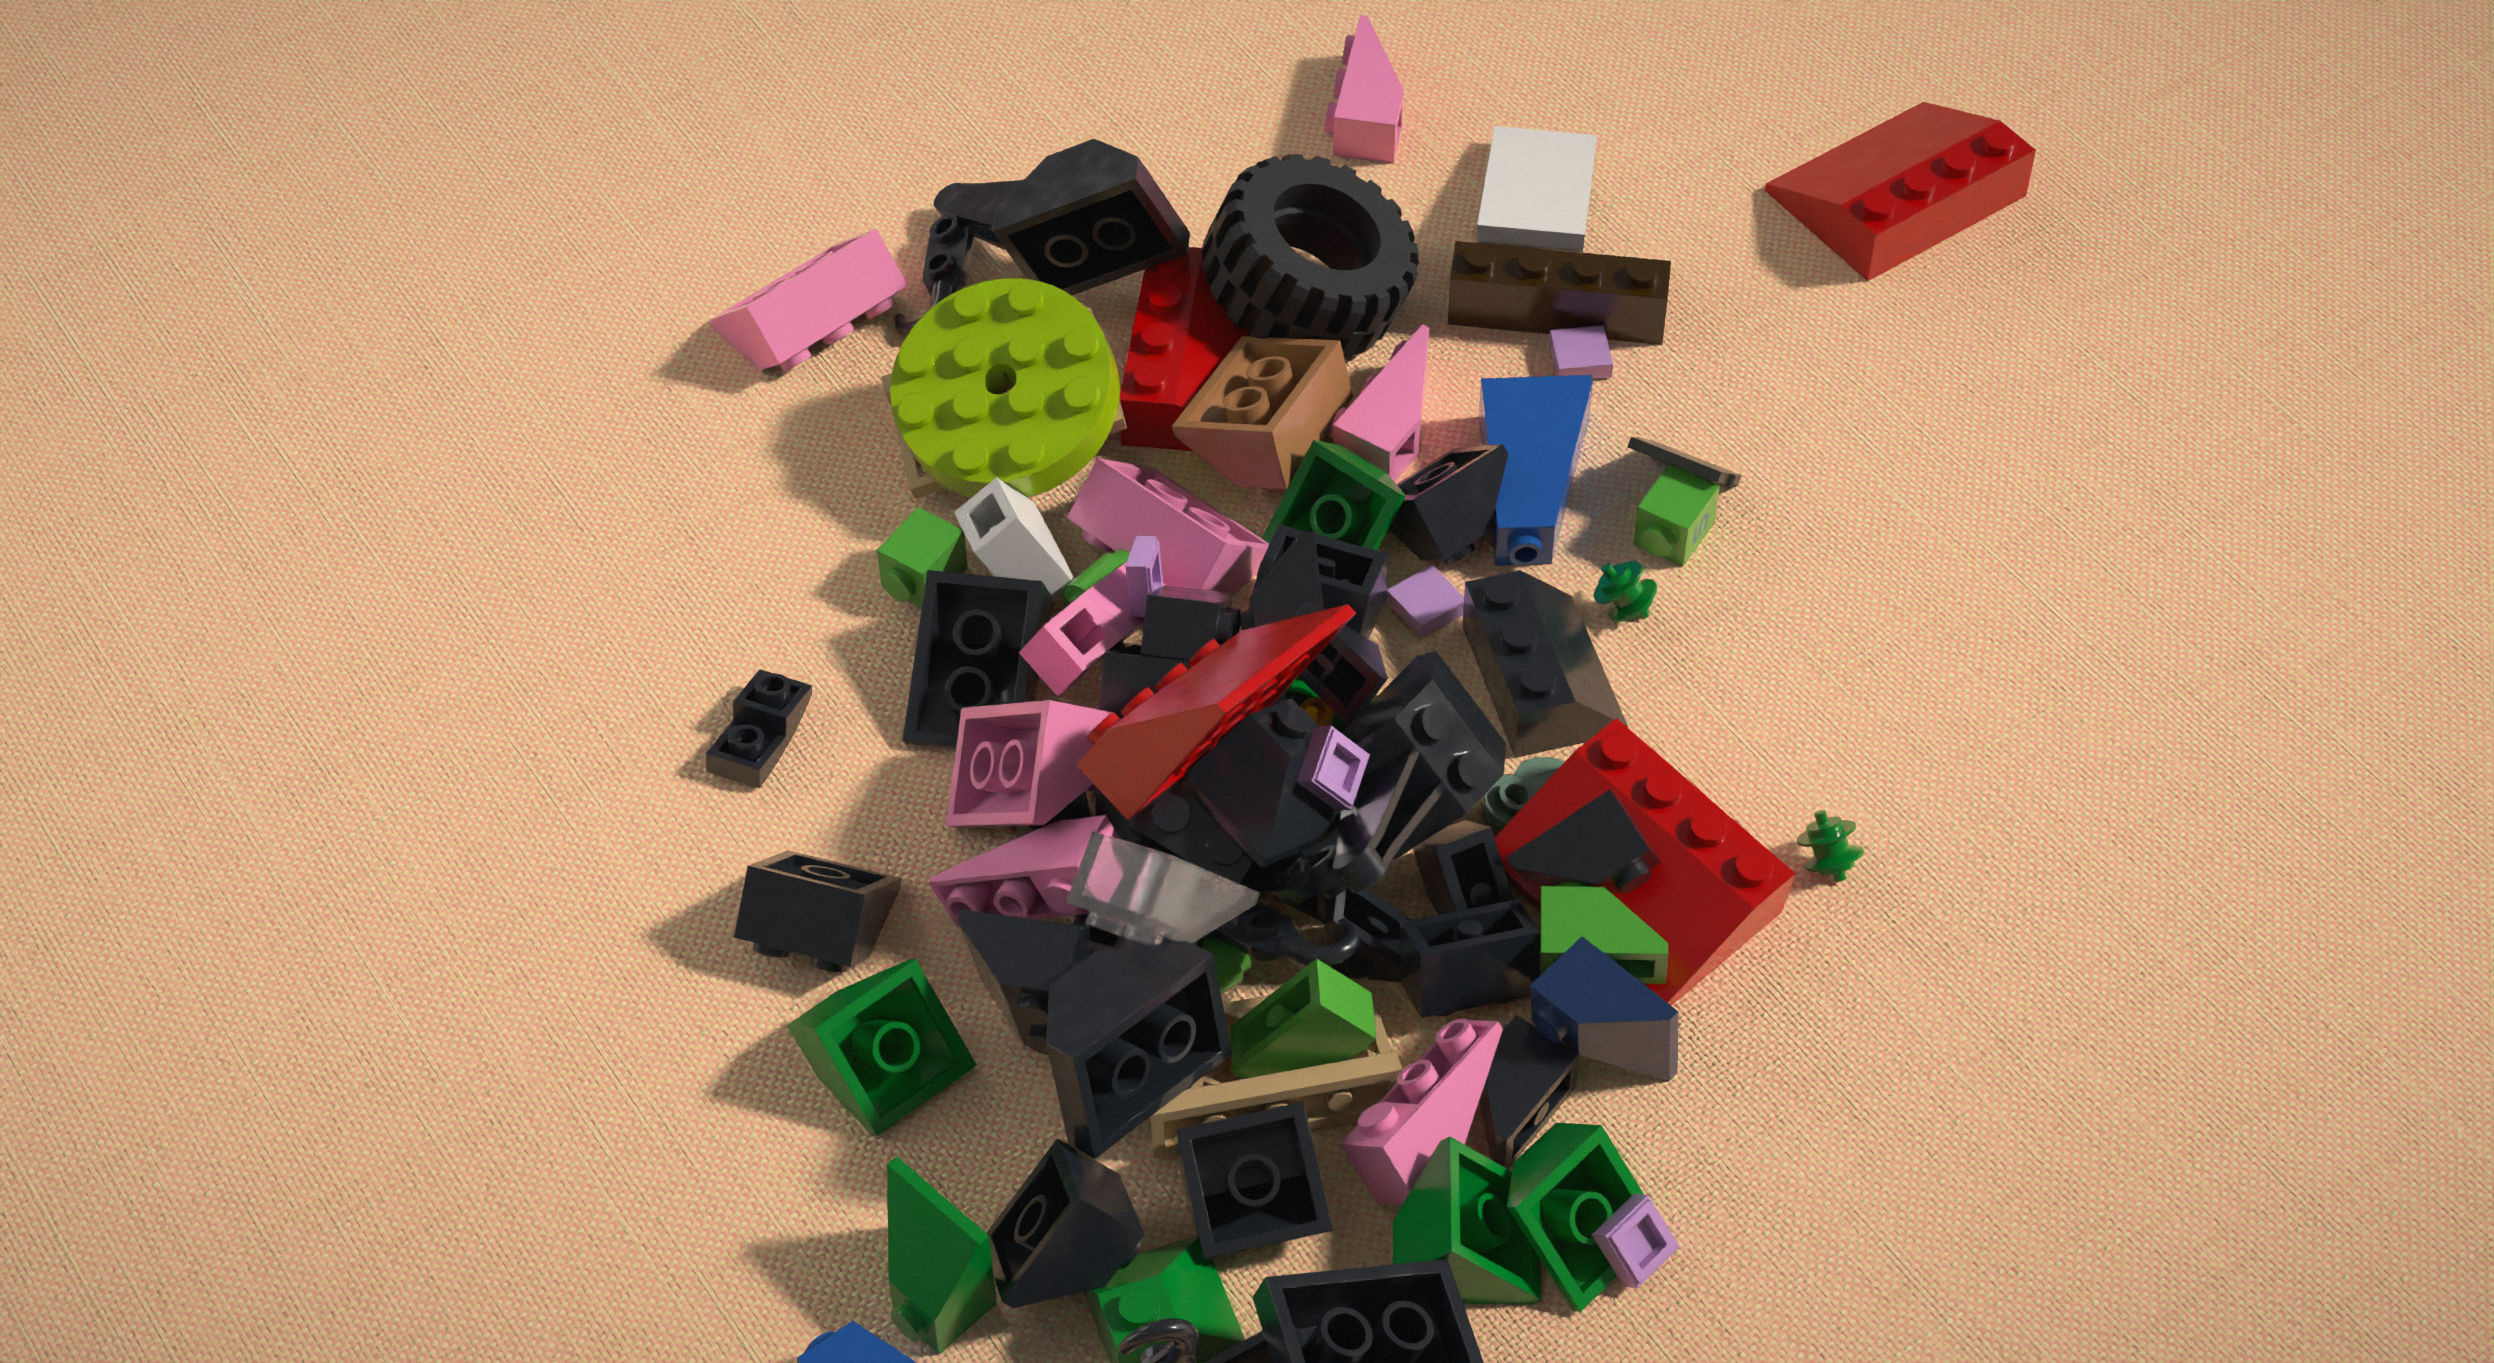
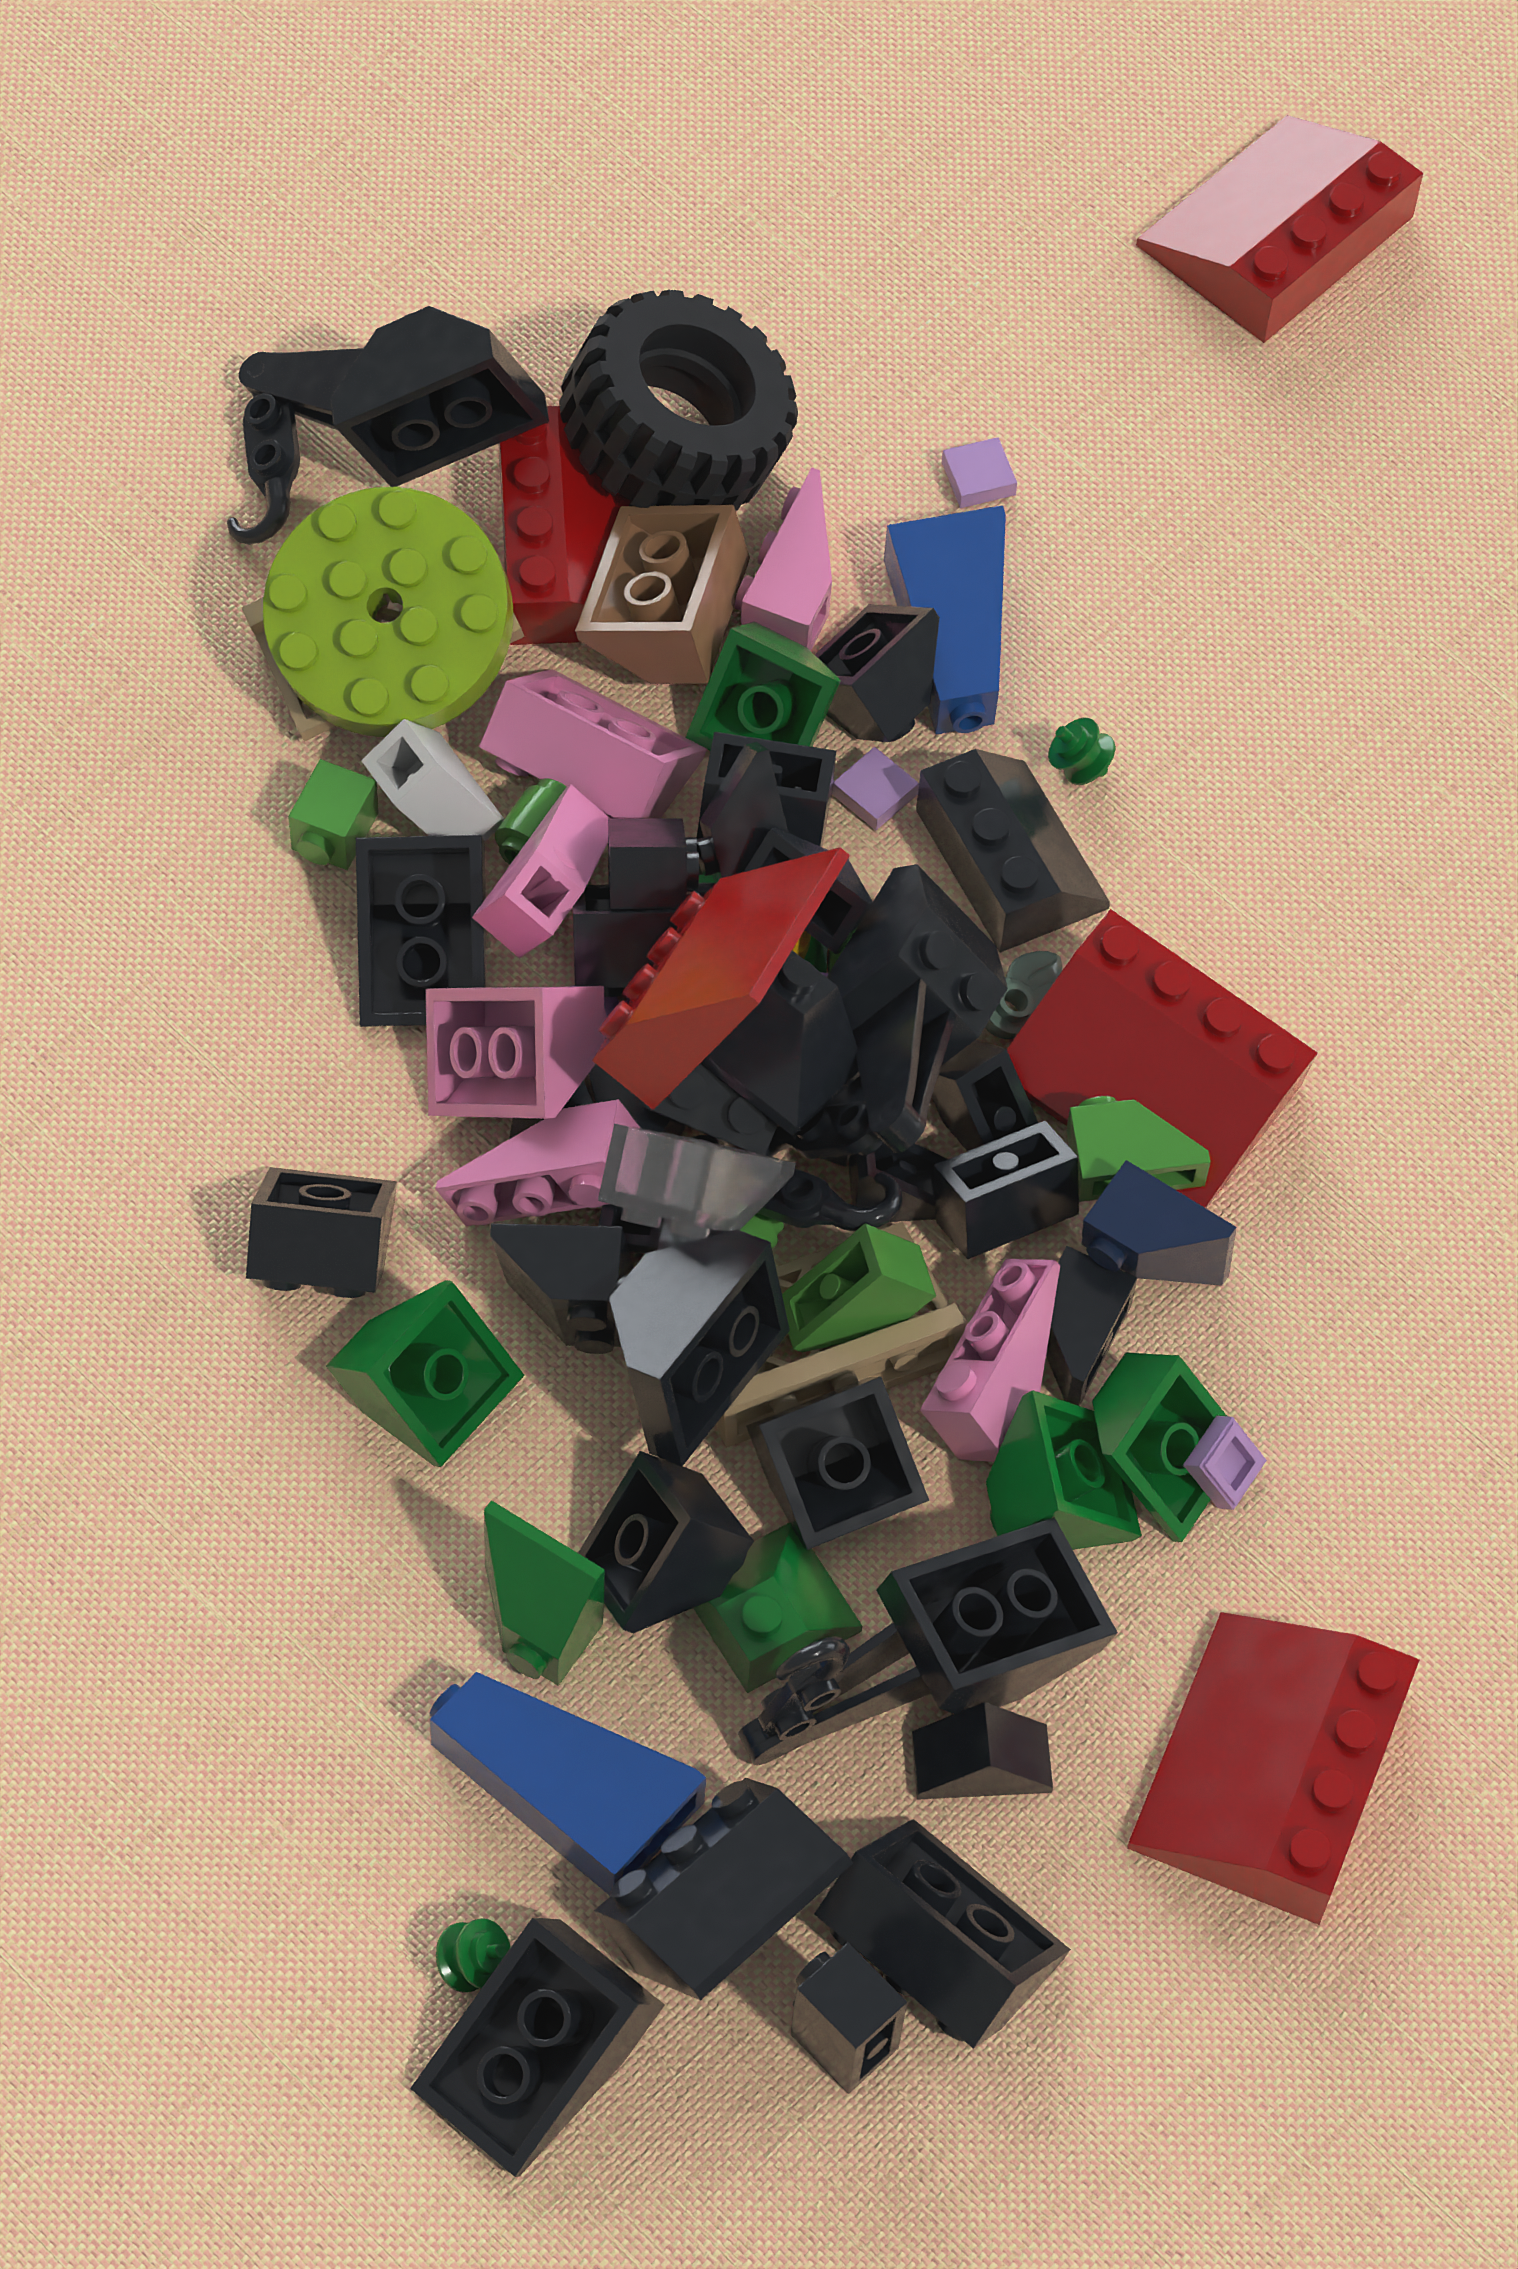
camera: 15 degrees left, 10 degrees up
(761, 728) = (205, 1033): black slope -> none
(813, 302) = (134, 519): bright pink slope -> none
(1143, 572) = (592, 817): lavender tile -> none
(1333, 768) = (845, 1017): lavender tile -> none
(1370, 100) = (694, 187): bright pink slope -> none
(1537, 189) = (899, 281): white tile -> none
(1558, 290) = (943, 399): dark brown slope -> none
(1590, 847) = (1112, 1059): black slope -> none
(1676, 515) = (1117, 655): bright green brick -> none
(1684, 461) = (1116, 592): pearl dark grey piece -> none
(1830, 846) = (1341, 1010): green wheel -> none

